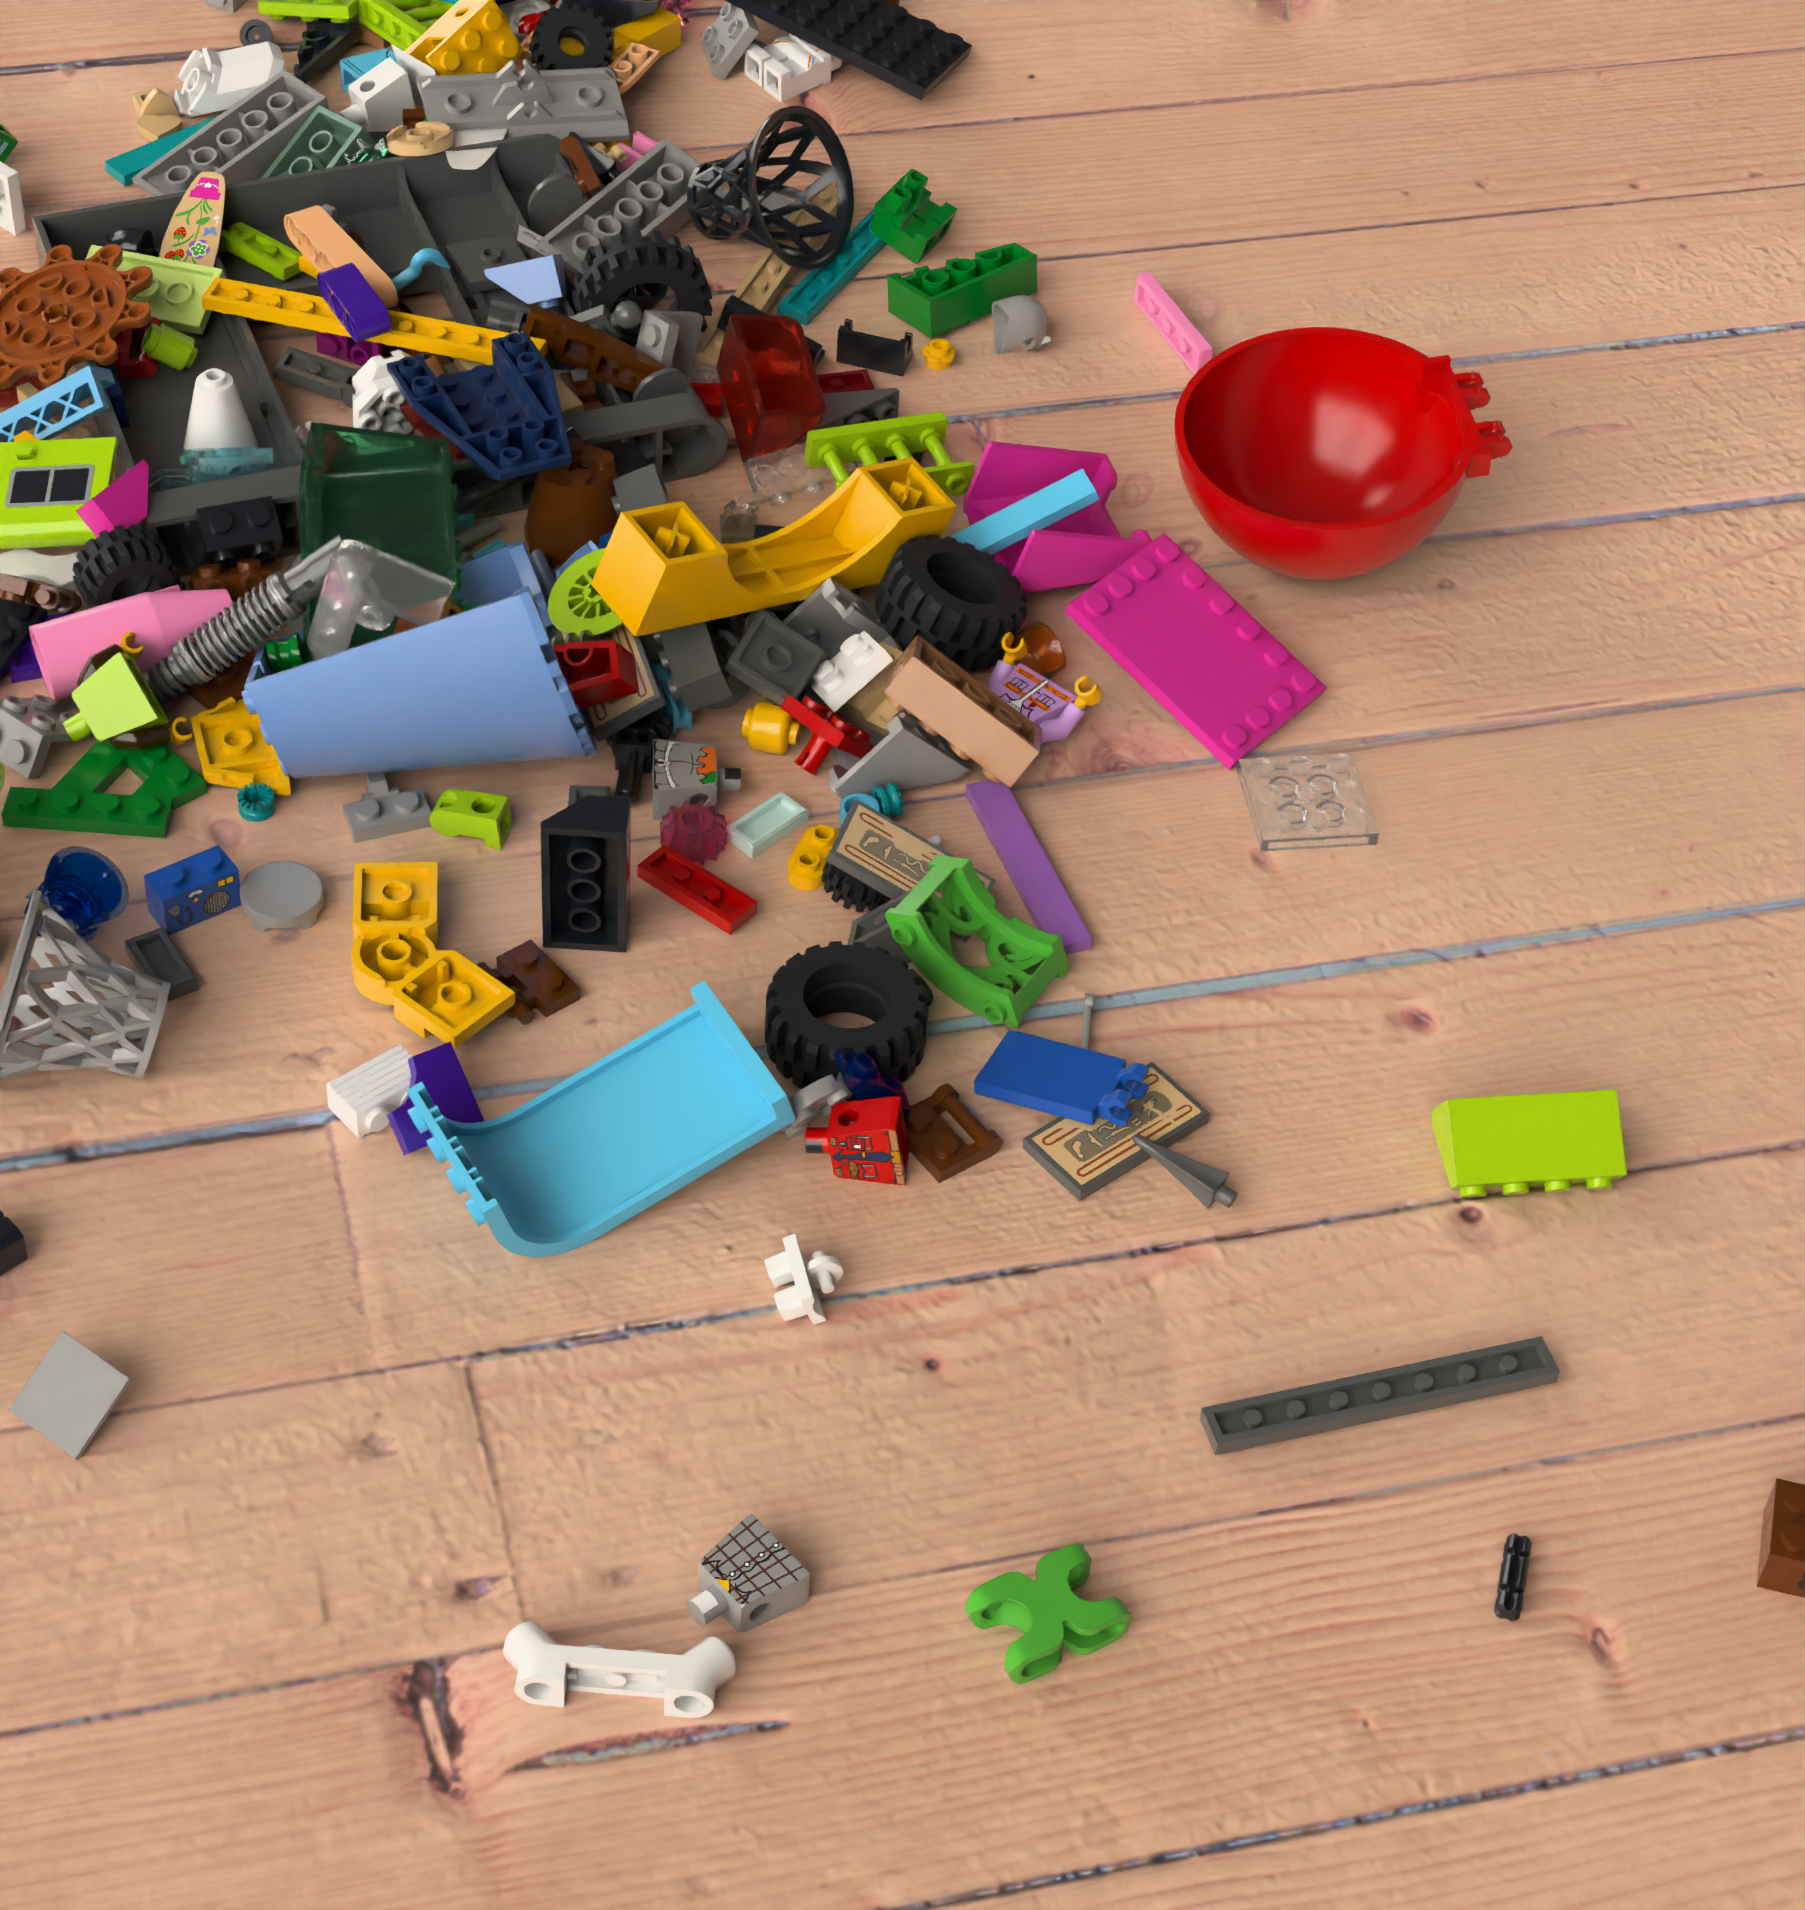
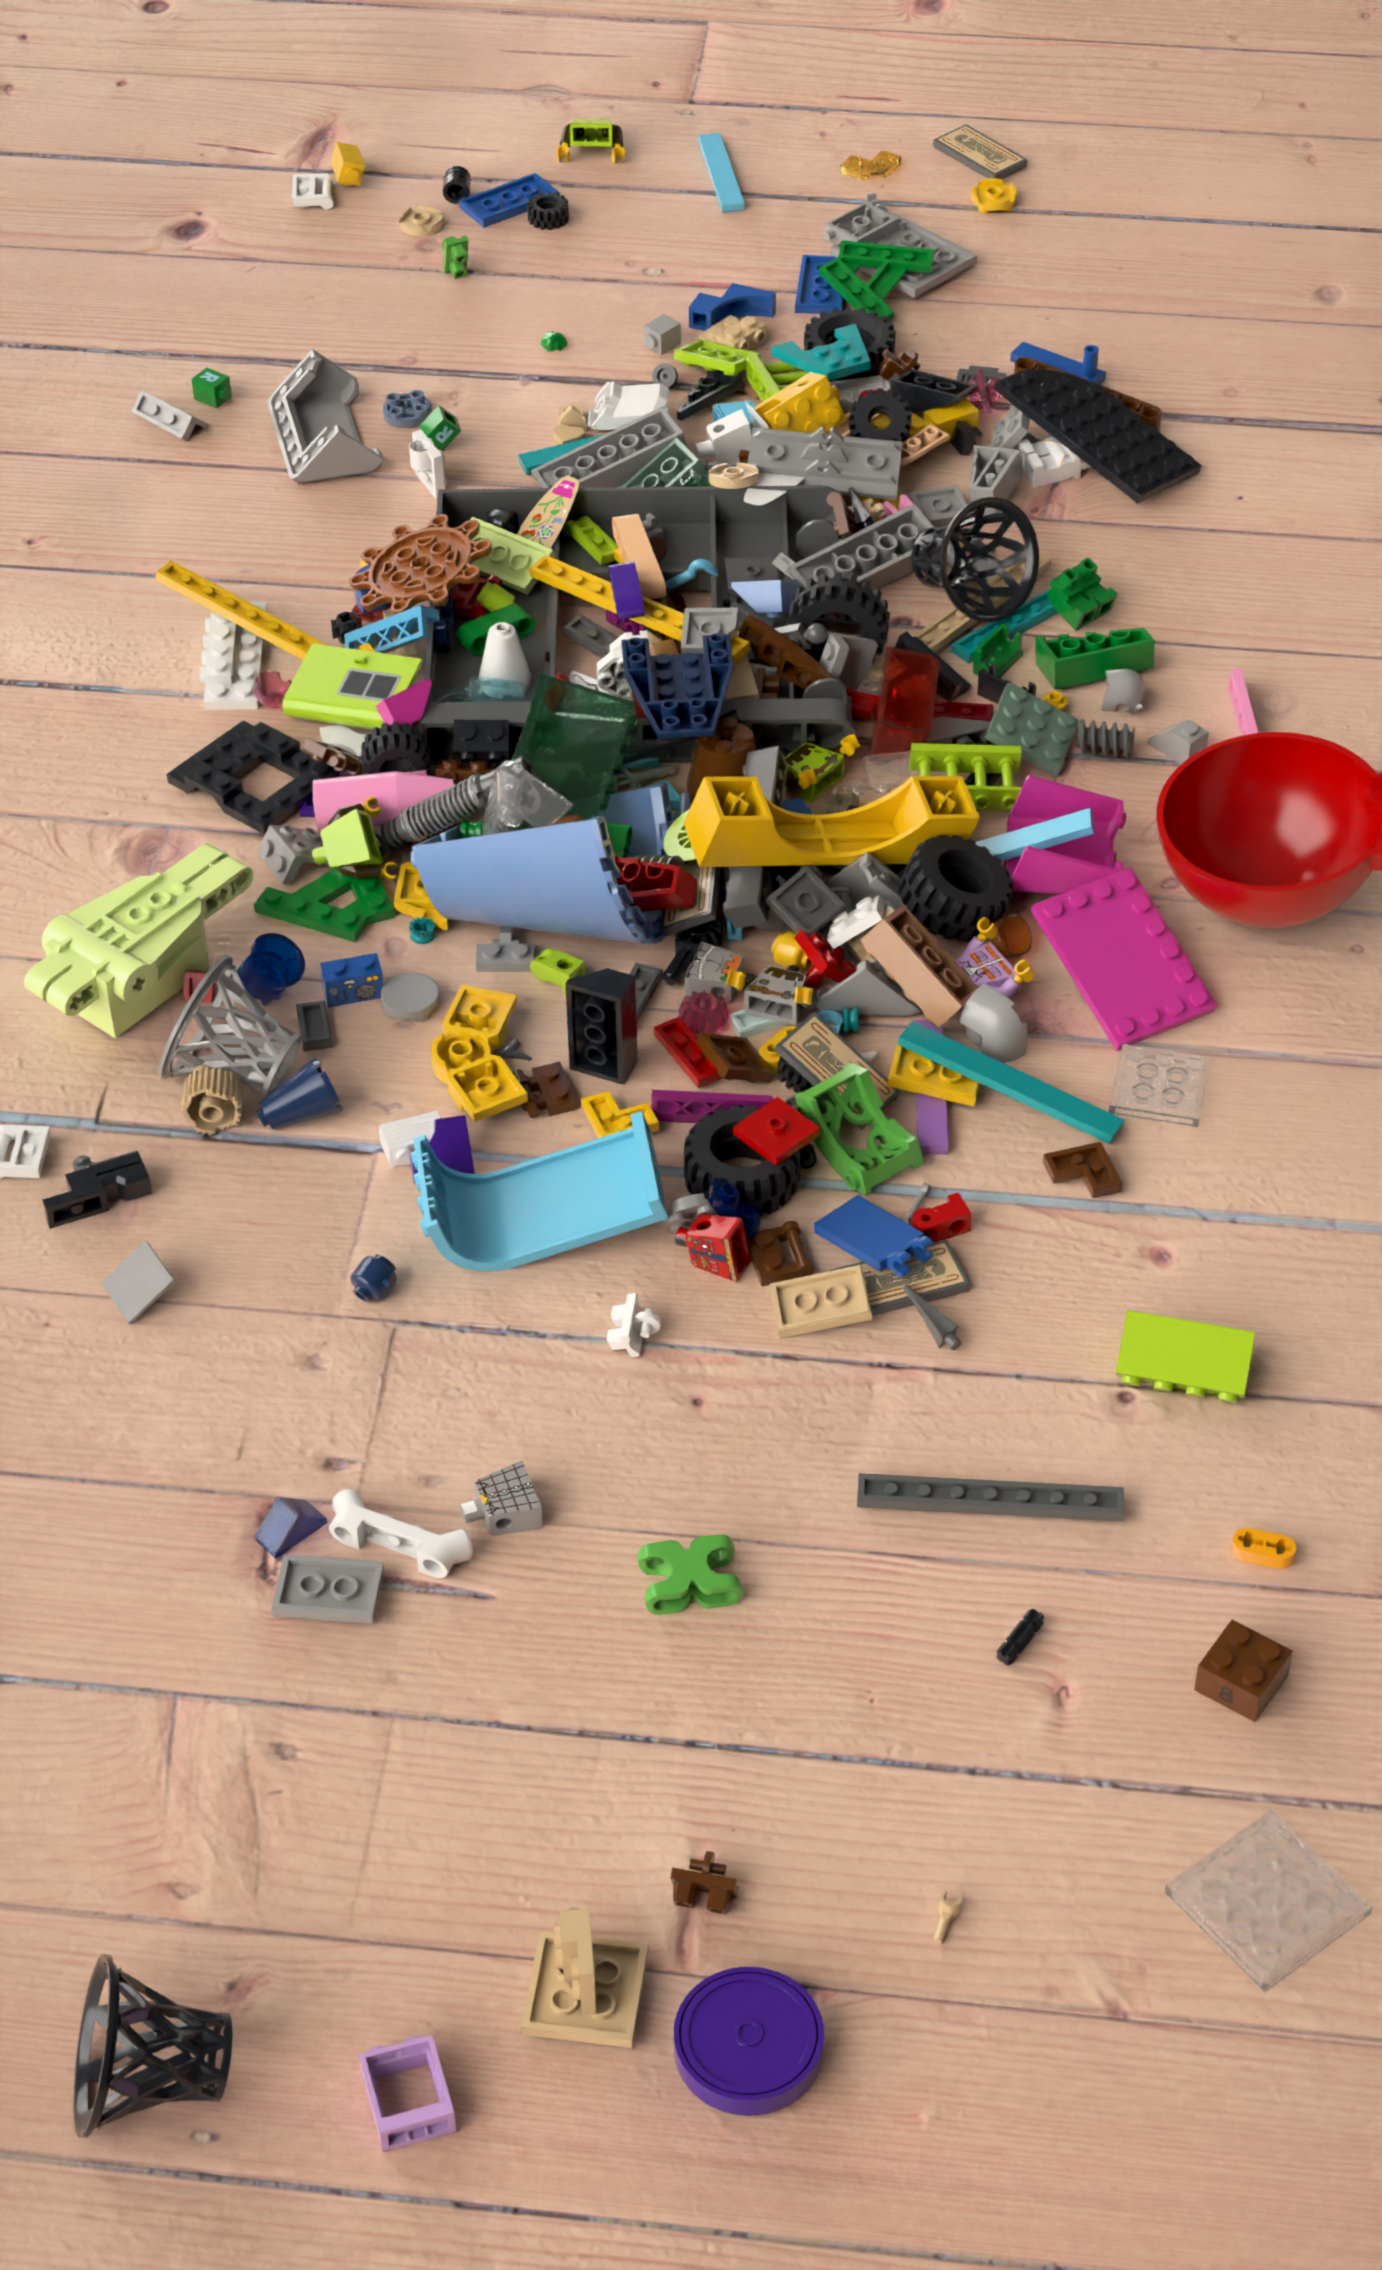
camera: 25 degrees right, 0 degrees up
(69, 1101) = (212, 1099): none -> tan brick
(85, 15) = (553, 341): none -> green piece
(170, 391) = (475, 632): none -> green beam
(196, 1070) = (300, 1098): none -> dark blue cone
(412, 1303) = (373, 1278): none -> dark blue head
(449, 1701) = (288, 1524): none -> clear blue slope
(451, 941) = (509, 1051): none -> dark grey bar
(478, 324) = (706, 622): none -> light grey plate
(552, 1781) = (328, 1589): none -> light grey plate
(637, 1006) = (607, 1117): none -> yellow plate
(672, 54) = (964, 437): none -> black tile
(690, 135) = (939, 504): none -> light grey plate
(699, 479) = (817, 769): none -> torso
(733, 96) = (994, 473): none -> light grey wedge
(752, 957) = (692, 1106): none -> magenta fence
(766, 883) = (735, 1058): none -> reddish brown plate
(783, 786) = (775, 993): none -> torso
(841, 303) = (998, 651): none -> green hinge
(888, 967) = (776, 1131): none -> red plate
(931, 382) = (1035, 726): none -> sand green plate
(1026, 384) = (1105, 739): none -> dark grey piece
(1031, 846) = (926, 1077): none -> yellow tile
(1033, 1184) = (820, 1301): none -> tan tile
(1079, 768) = (994, 1025): none -> light grey brick
(1118, 373) = (1180, 740): none -> light grey slope
(1131, 837) = (1011, 1082): none -> teal tile
(1139, 1035) = (944, 1220): none -> red leg
(1277, 920) = (1087, 1162): none -> reddish brown plate
(1743, 1370) = (1263, 1548): none -> light orange beam

